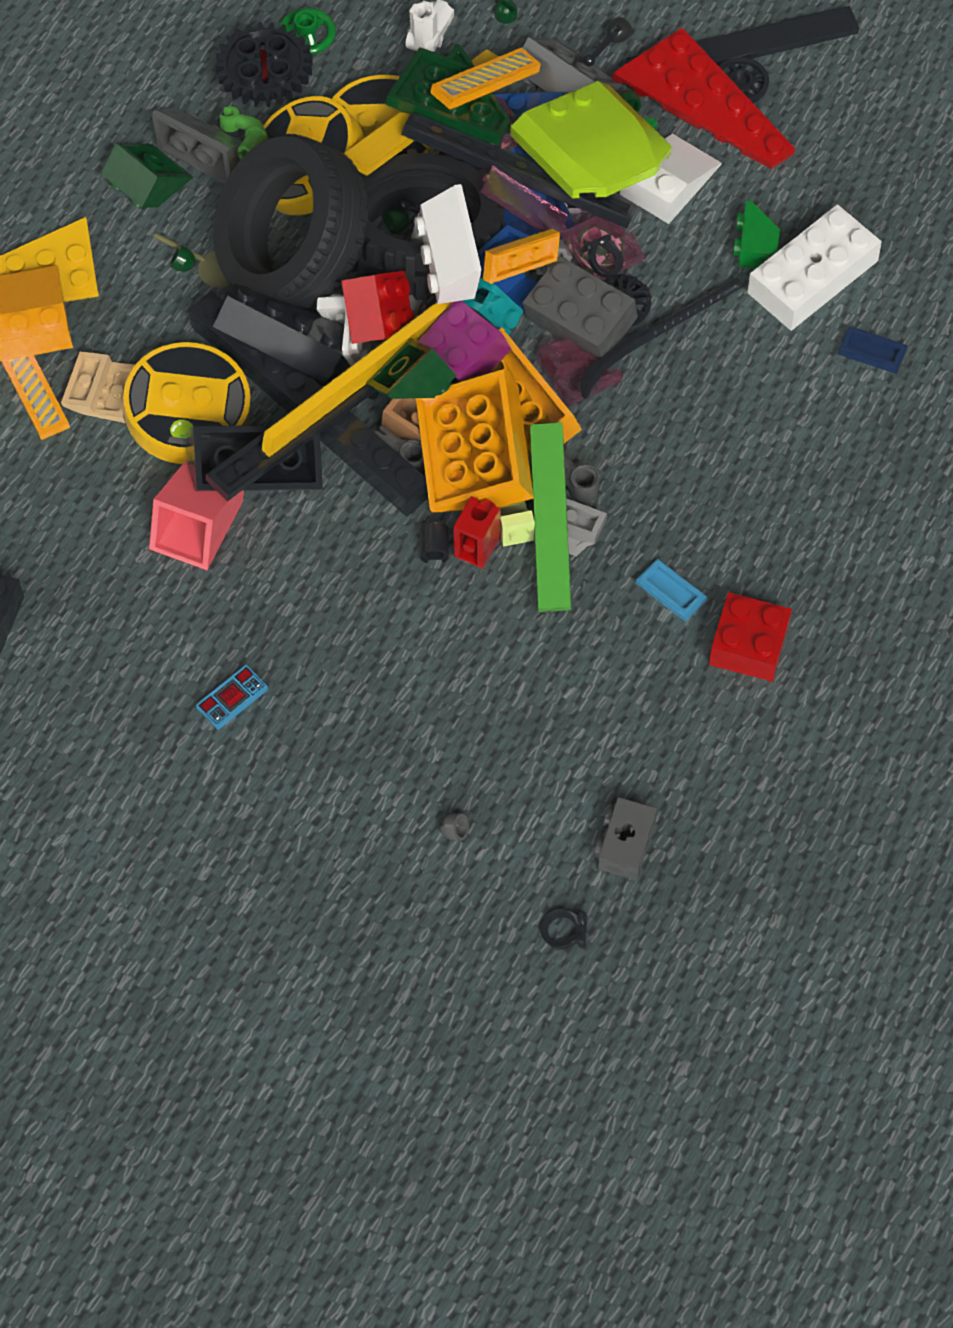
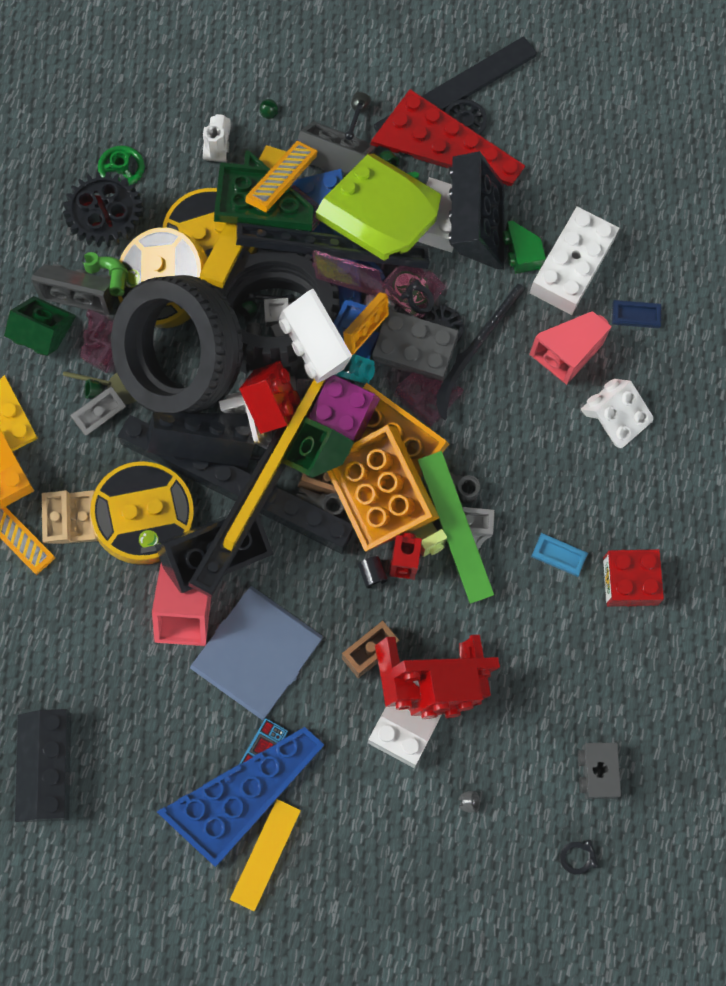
camera: 25 degrees left, 10 degrees up
(177, 741) = (230, 804): none -> blue wing
(178, 282) = (98, 410): none -> light grey plate
(189, 812) = (265, 855): none -> yellow tile
(200, 216) = (96, 347): none -> clear pink slope
(263, 593) = (256, 652): none -> sand blue piece
(397, 622) = (362, 654): none -> medium nougat brick
(412, 717) = (402, 734): none -> white slope
(467, 672) = (444, 684): none -> red piece
(712, 178) = (477, 210): none -> black slope
(771, 355) = (570, 345): none -> coral slope
(807, 451) = (619, 411): none -> white bracket

